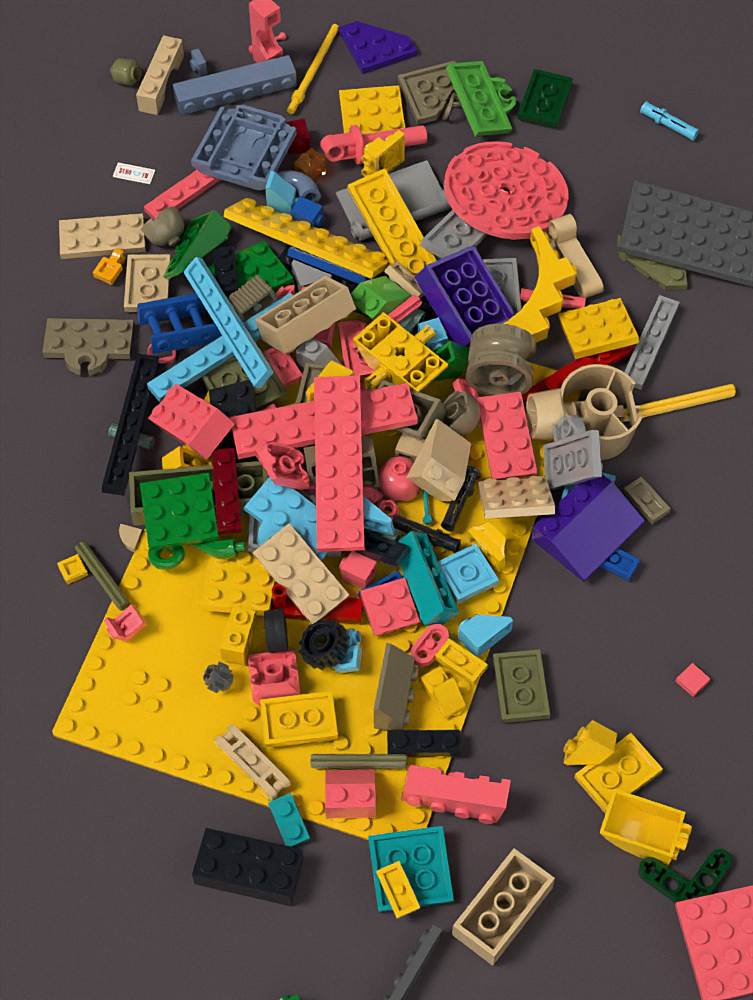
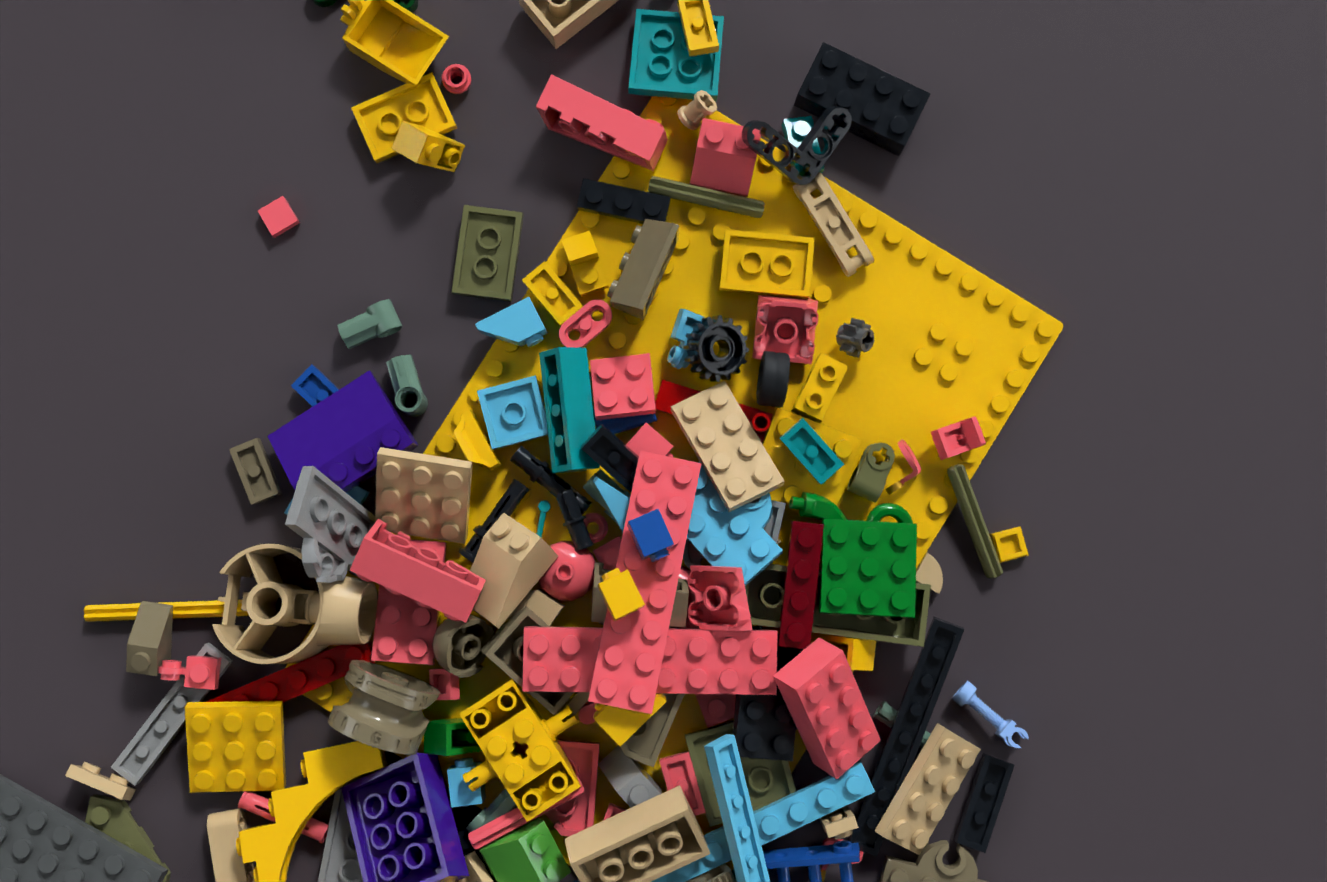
camera: 170 degrees left, 25 degrees up
(66, 401) = (984, 802): none -> black plate
(89, 463) = (1005, 729): none -> light blue bar
(108, 398) = (927, 789): none -> tan plate
(158, 589) = (913, 462): none -> coral piece
(167, 359) = (839, 823): none -> tan plate
(187, 589) = (870, 477): none -> olive piece
(236, 581) = (811, 451): none -> teal plate
(270, 824) = (804, 153): none -> black beam
(341, 482) = (651, 536): none -> blue brick
(353, 438) = (620, 593): none -> yellow brick
(383, 819) = (697, 110): none -> tan bush
(401, 505) = (574, 519): none -> black axle
(504, 442) = (416, 573): none -> coral wedge
(554, 579) = (406, 383): none -> sand green piece
(586, 808) = (456, 70): none -> coral plate
(590, 619) = (378, 321): none -> sand green piece
(639, 366) = (199, 672): none -> coral plate
(678, 292) = (89, 775): none -> tan plate
(680, 377) = (150, 638): none -> dark tan slope

